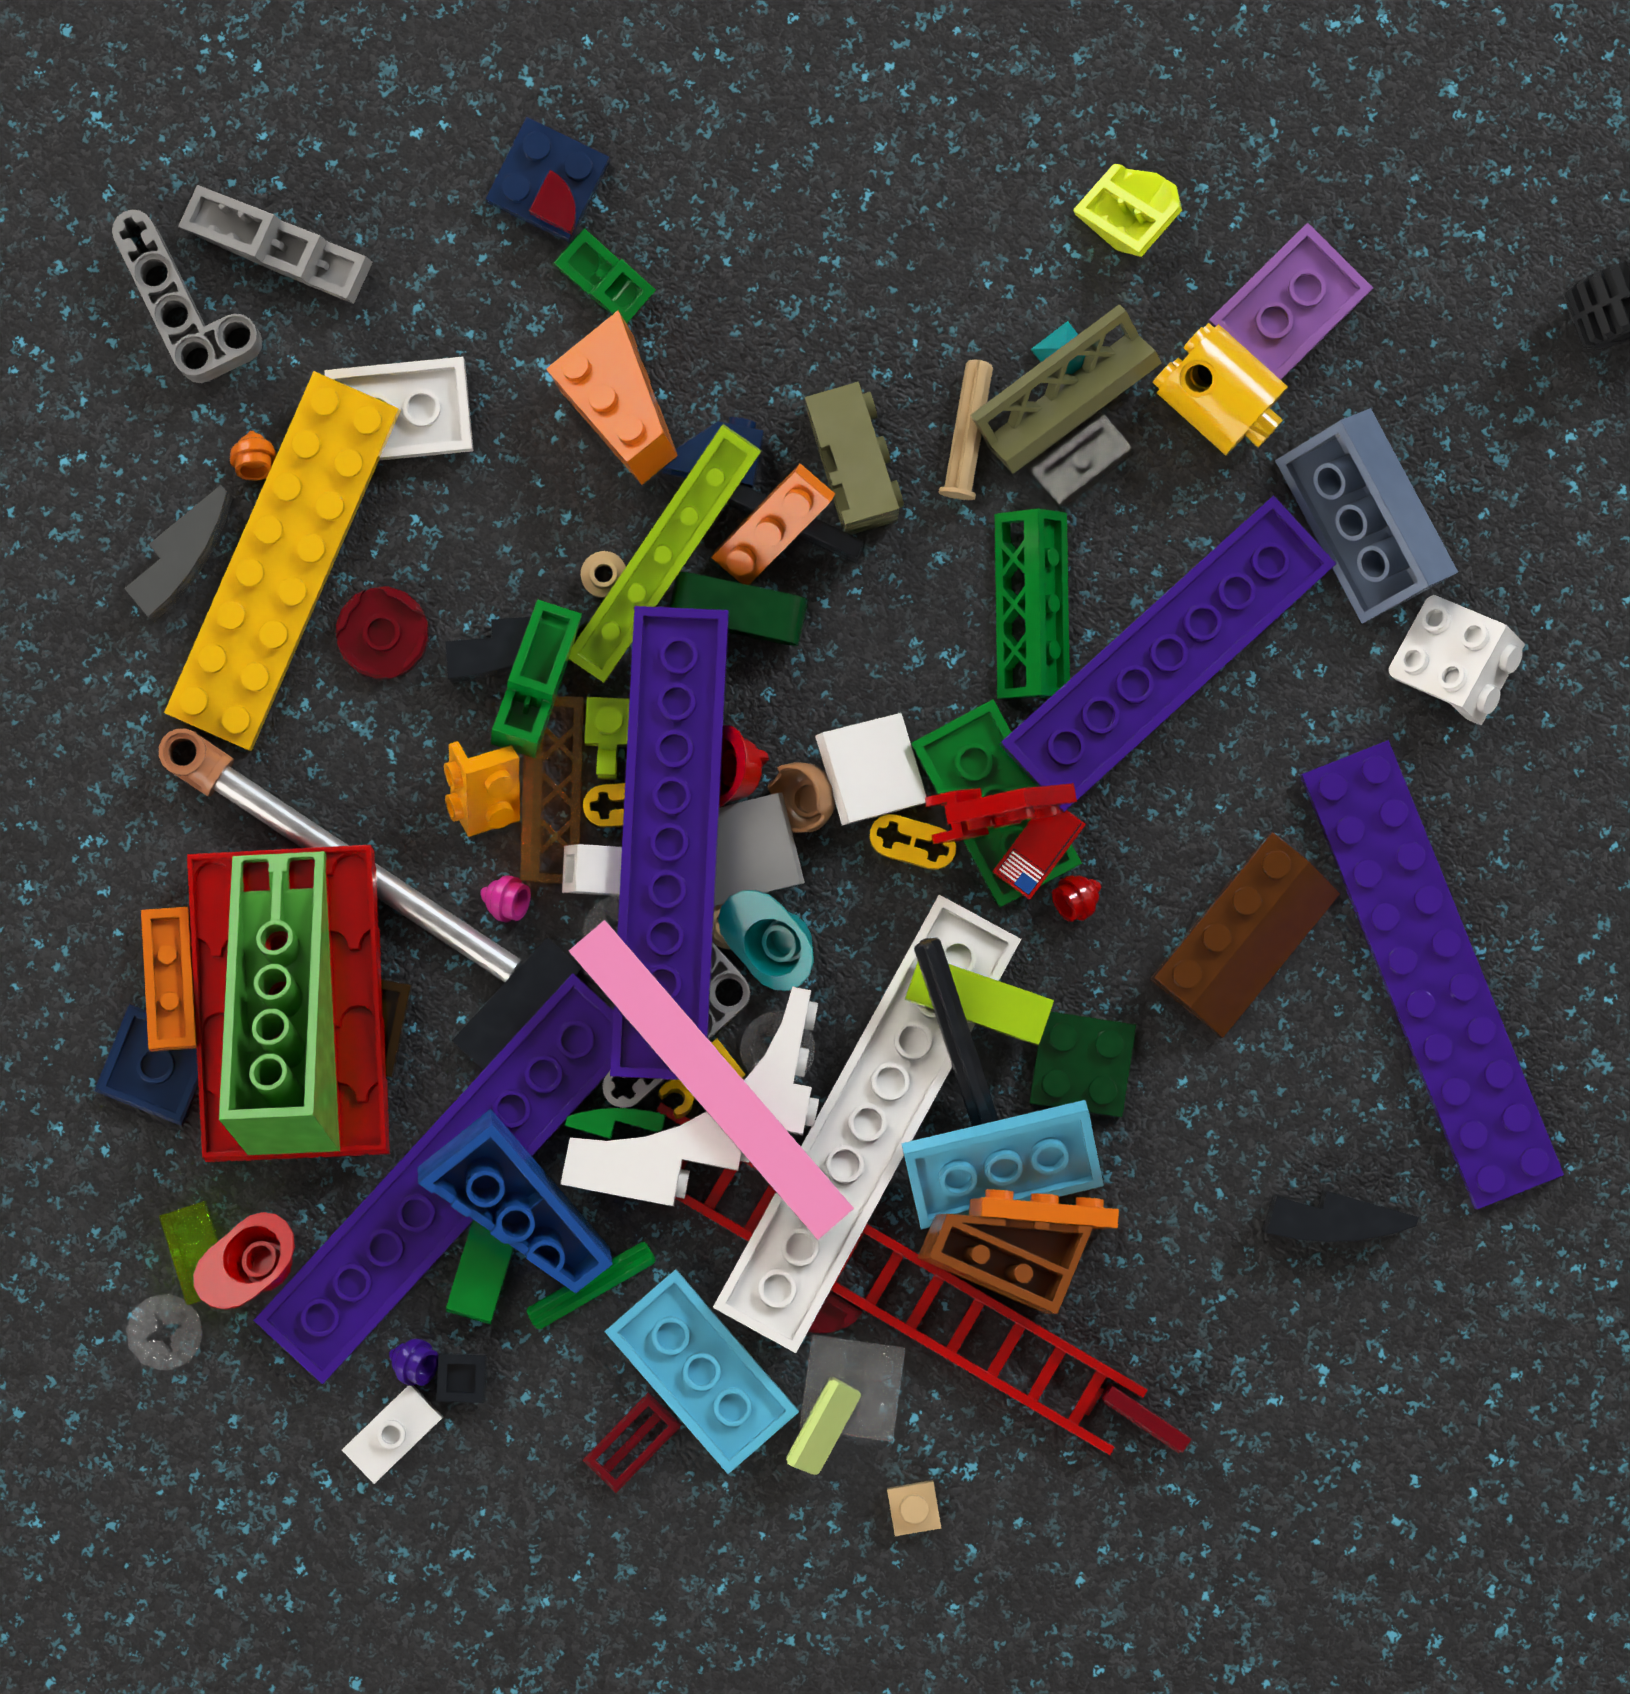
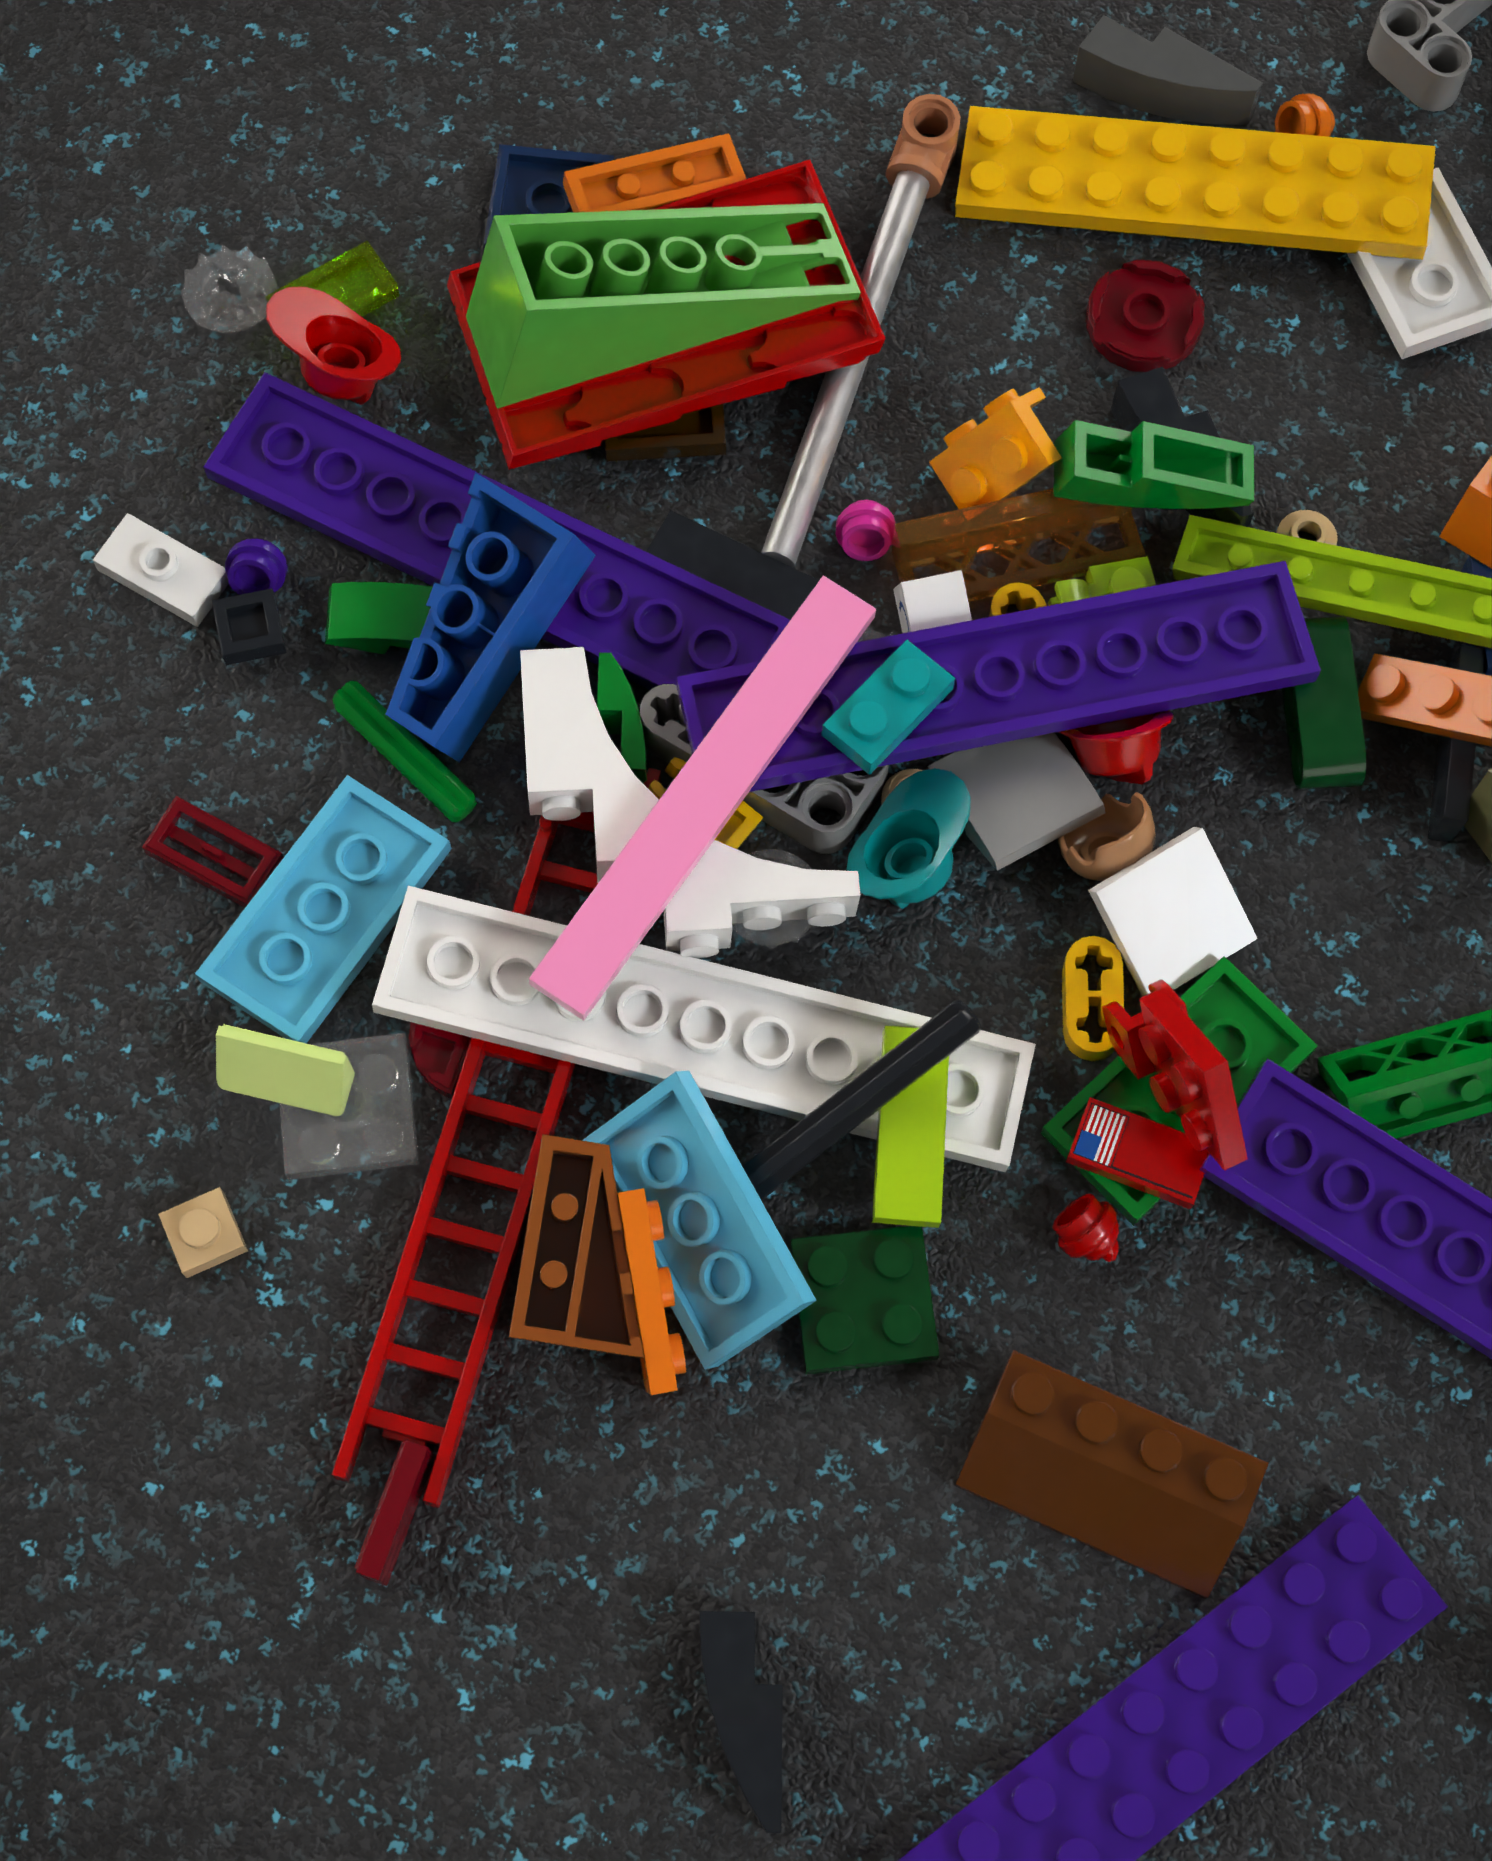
camera: 75 degrees right, 15 degrees down
(677, 931) = (888, 706): none -> teal plate

